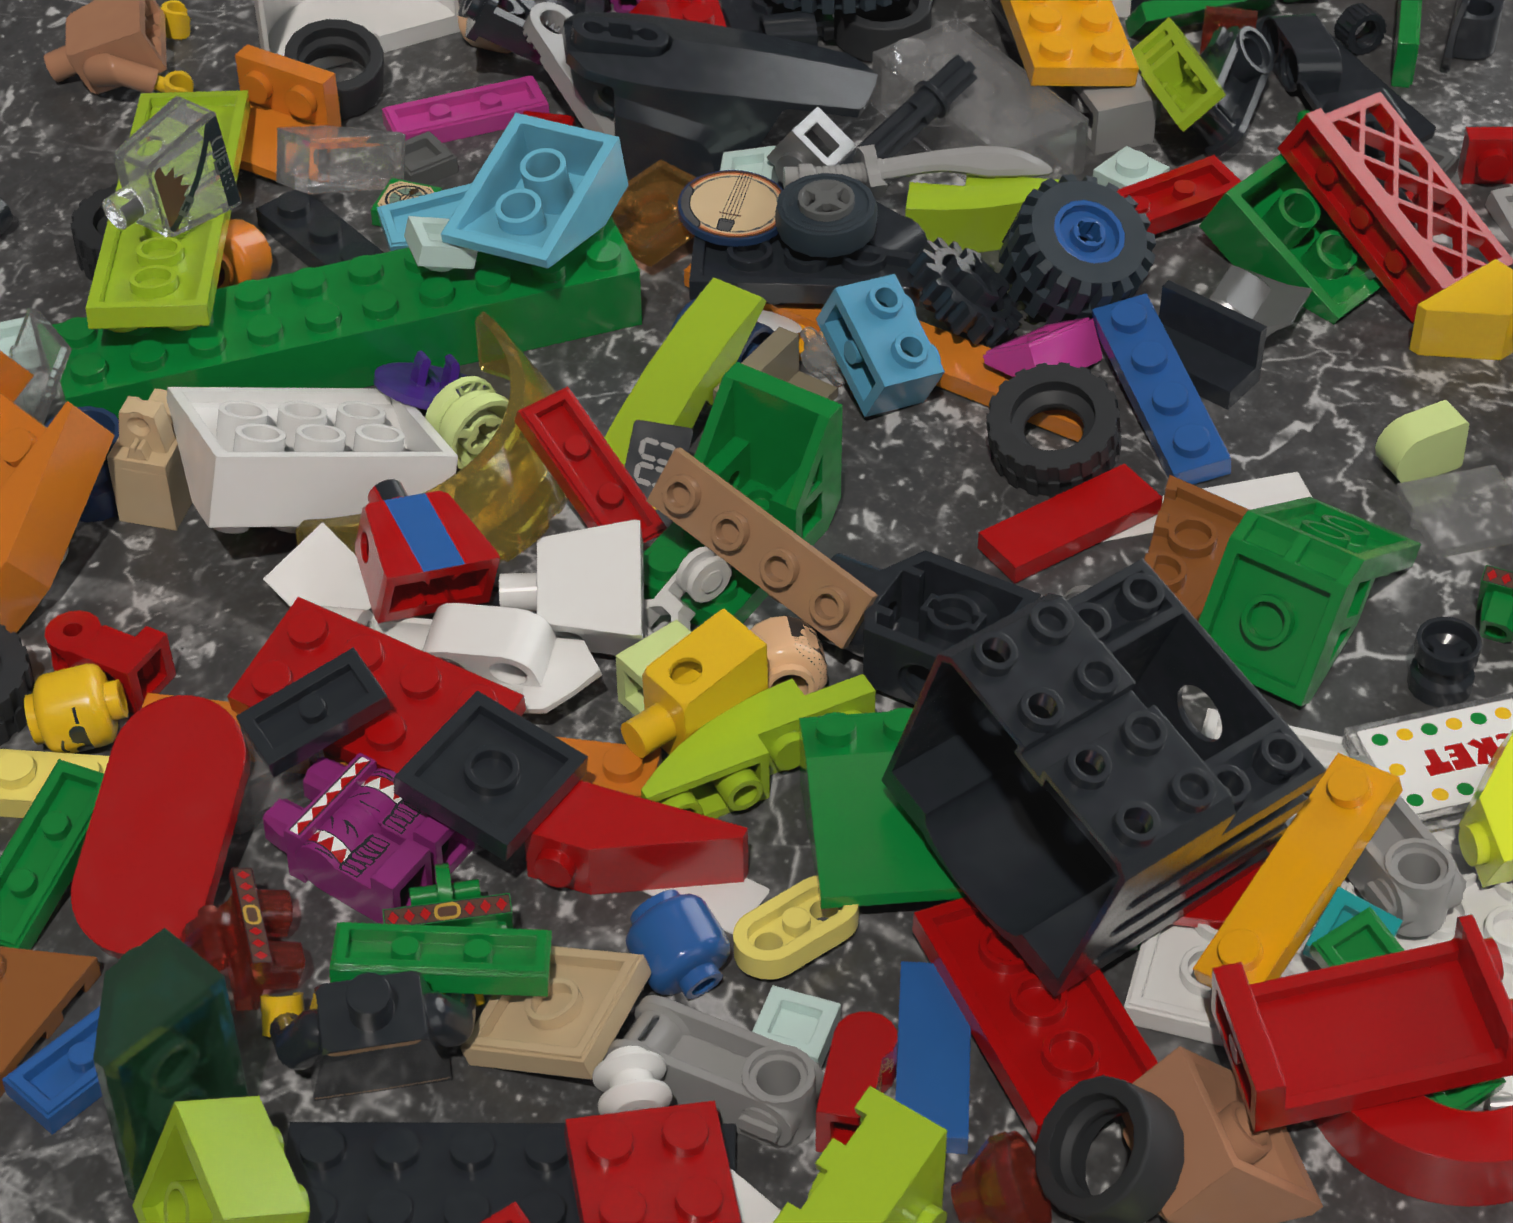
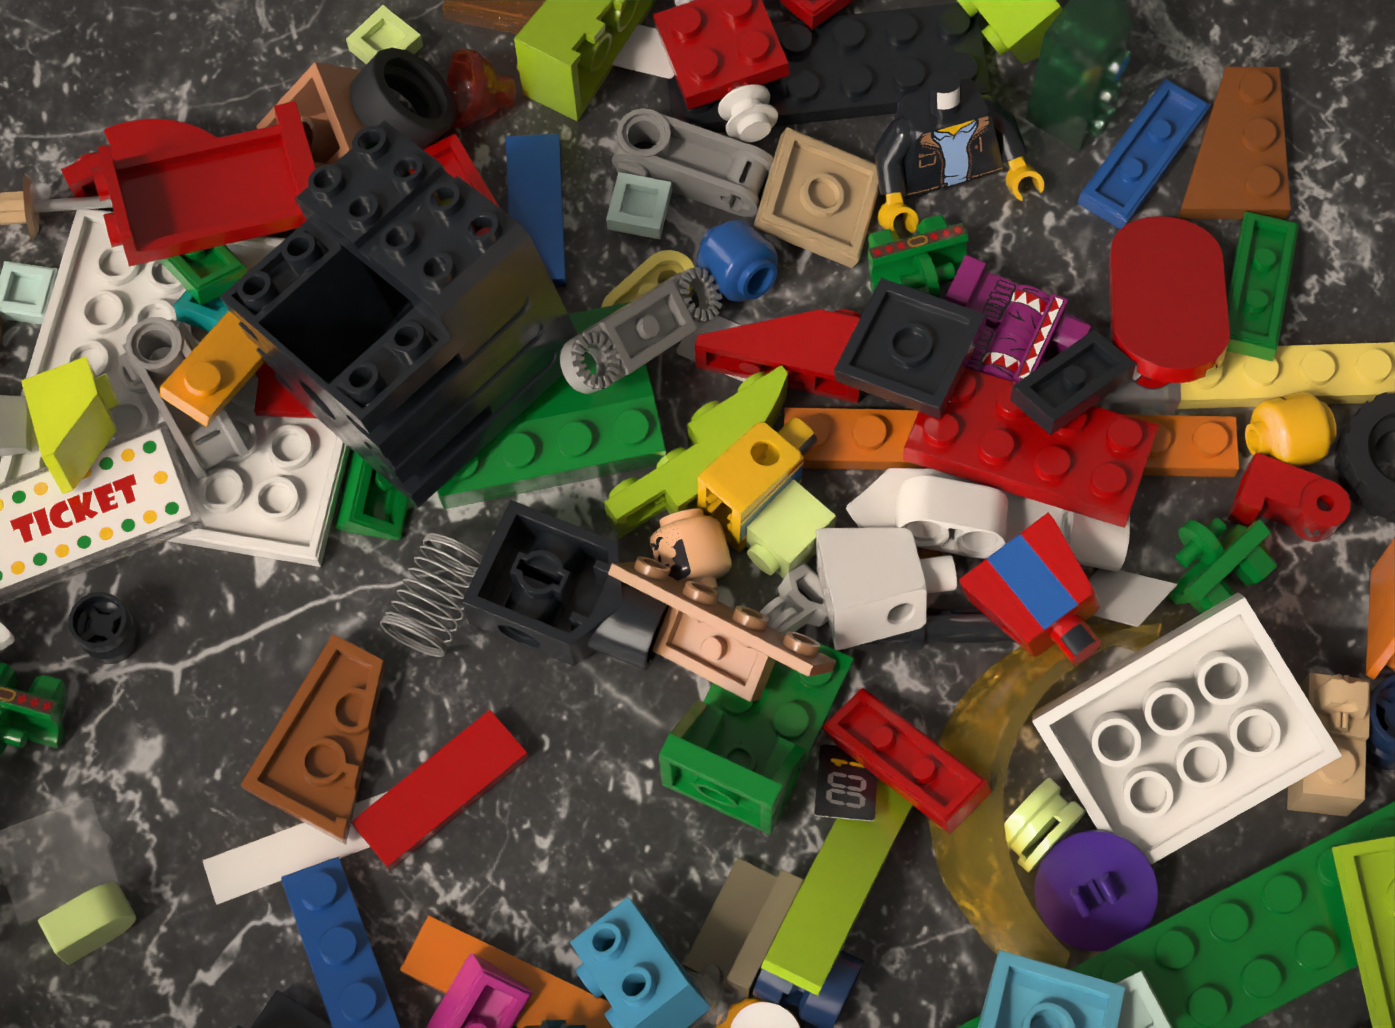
camera: 175 degrees right, 25 degrees up
(210, 608) = (1236, 550): none -> green hips
(238, 939) = (1076, 254): clear red hips -> none
(447, 956) = (912, 202): green tile -> none
(807, 812) = (640, 330): none -> light grey plate
(859, 1057) = (588, 175): red leg -> none
(1053, 389) = (456, 933): black tyre -> none
(1297, 590) = (212, 684): green bracket -> none

